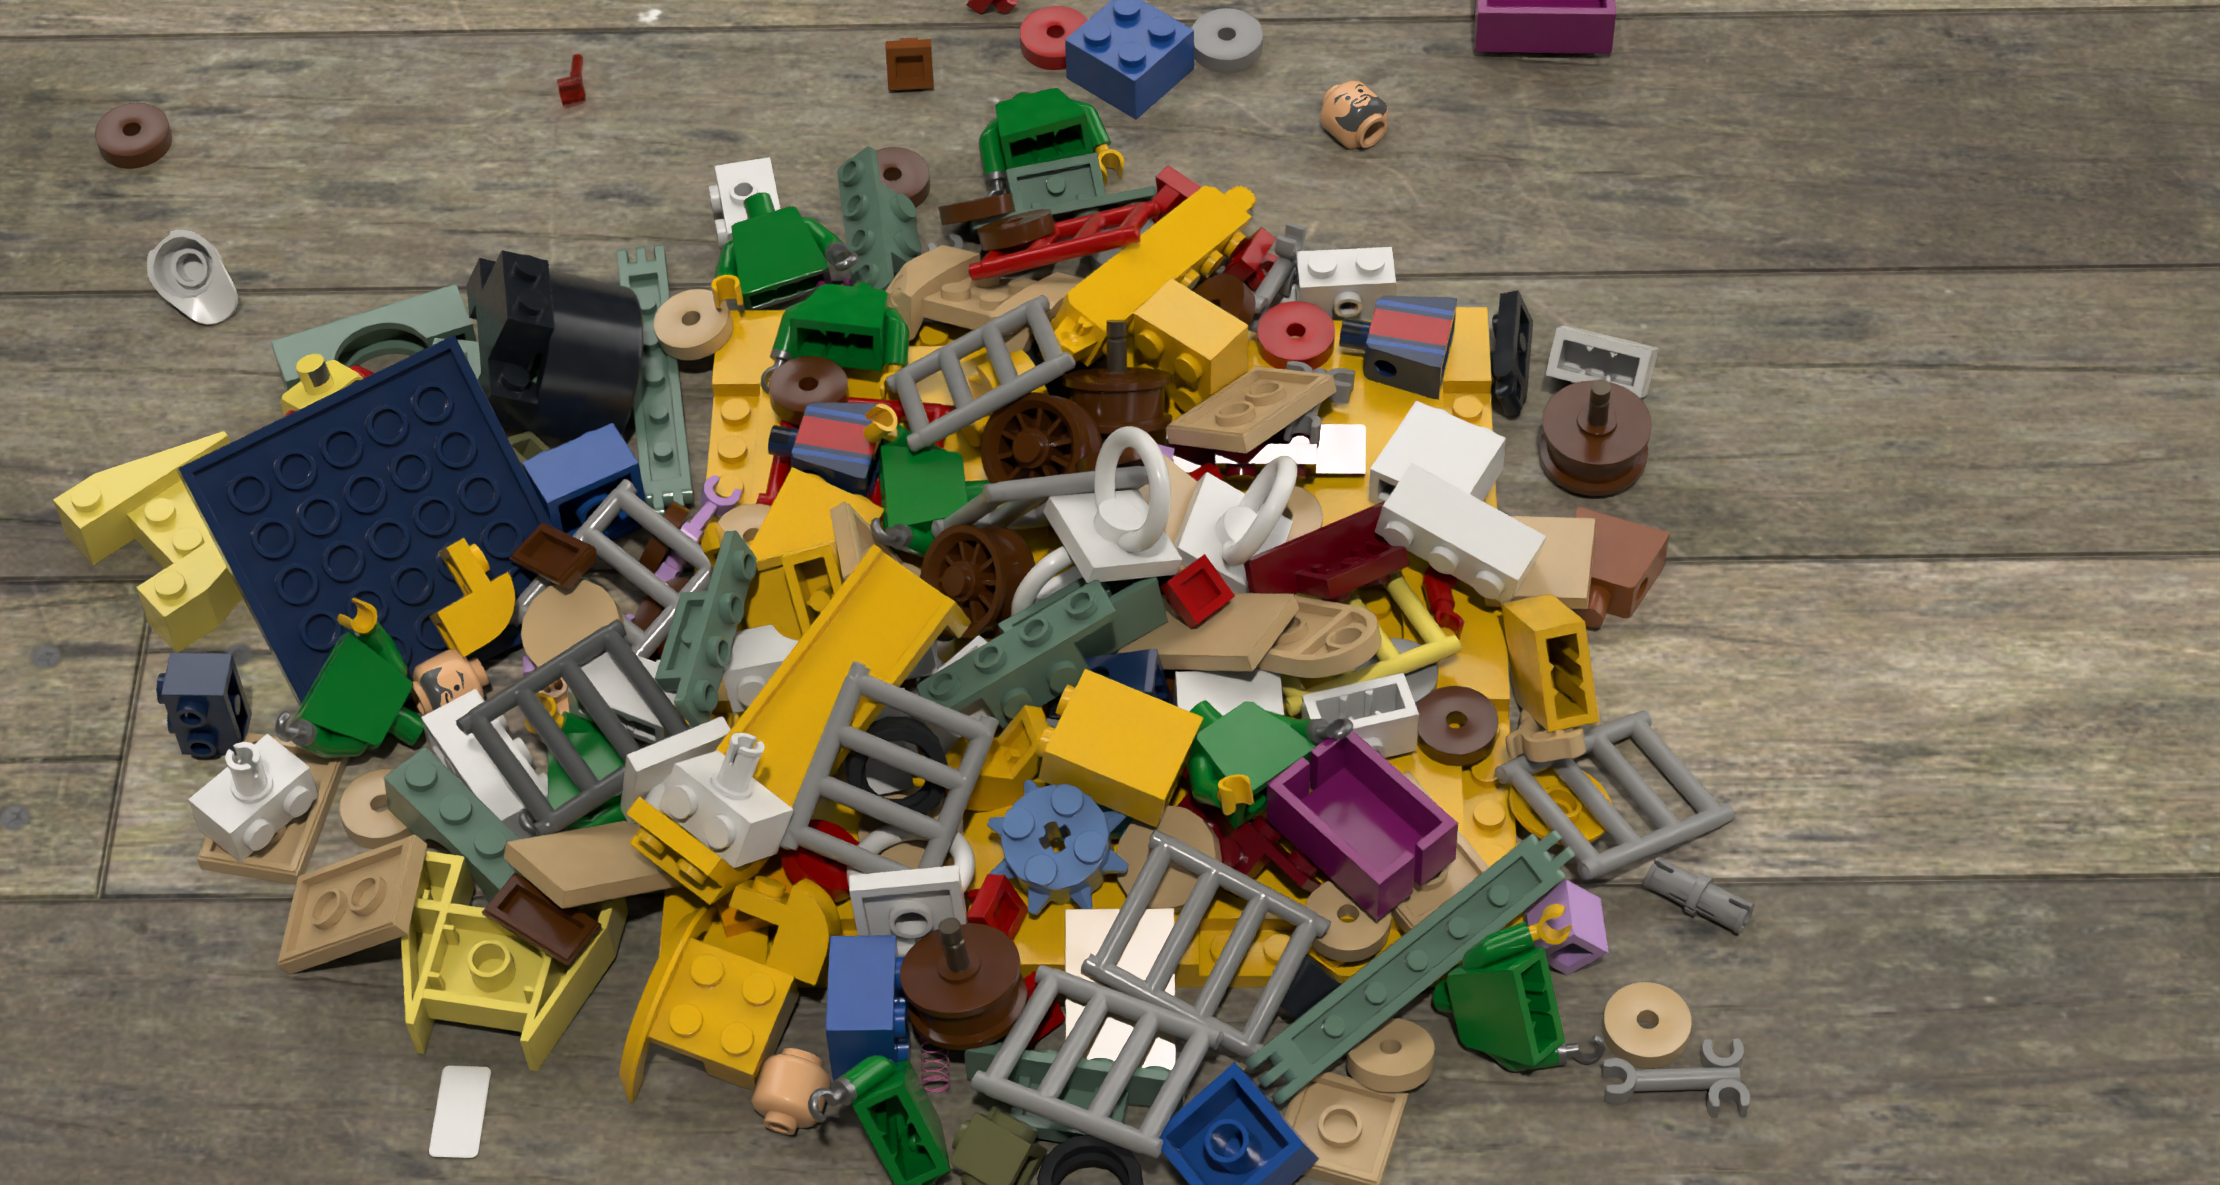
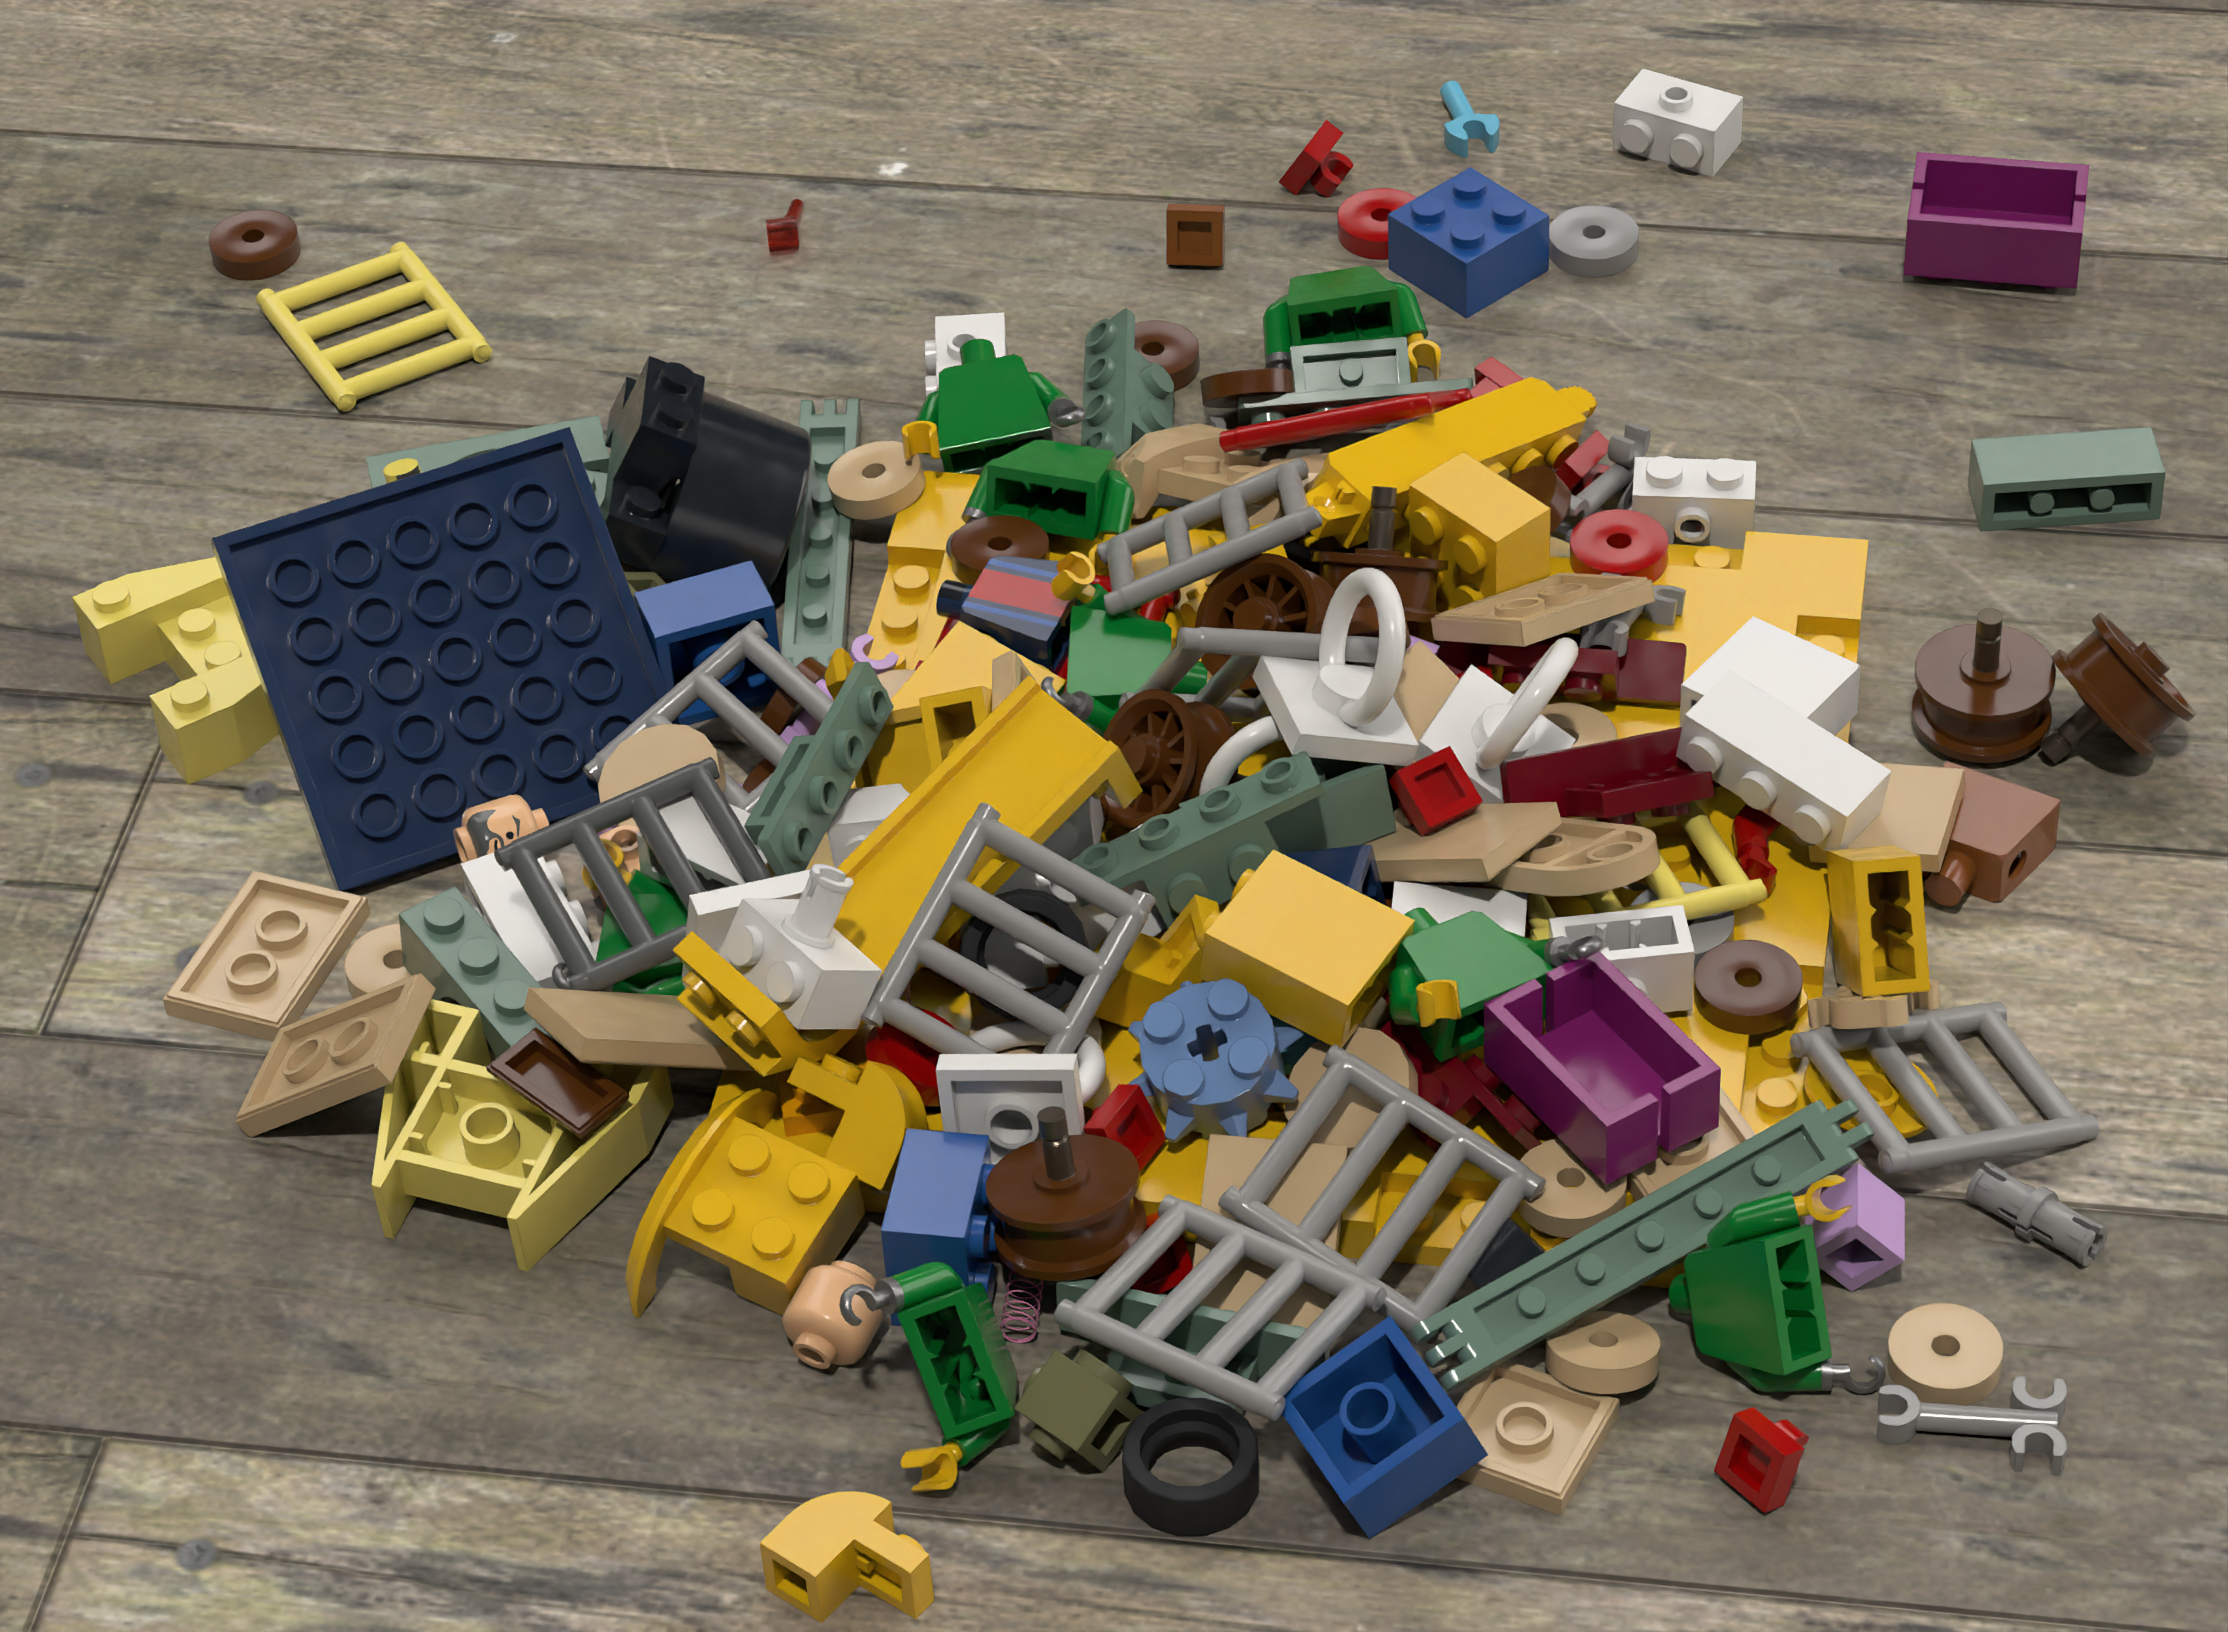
camera: 10 degrees right, 10 degrees down
(192, 277) = (289, 388): white piece -> none
(204, 702) = (205, 825): dark blue brick -> none
(253, 797) = (241, 929): white brick -> none
(282, 165) = (323, 363): none -> light yellow bar
(355, 694) = (386, 829): green torso -> none
(460, 1111) = (423, 1305): white sticker -> none
(485, 604) = (555, 753): yellow brick -> none
(555, 555) = (654, 696): reddish brown tile -> none
(1016, 229) = (1289, 405): reddish brown piece -> none
(1354, 115) = (1738, 327): light nougat head -> none
(1405, 342) = (1755, 561): dark blue torso -> none
(1512, 352) = (1893, 593): black hinge -> none
(1525, 1134) = (1761, 1457): none -> red tile
(1590, 356) = (2025, 606): white brick -> none
(1629, 233) = (2066, 479): none -> sand green brick
(1702, 428) = (2120, 688): none -> reddish brown wheel

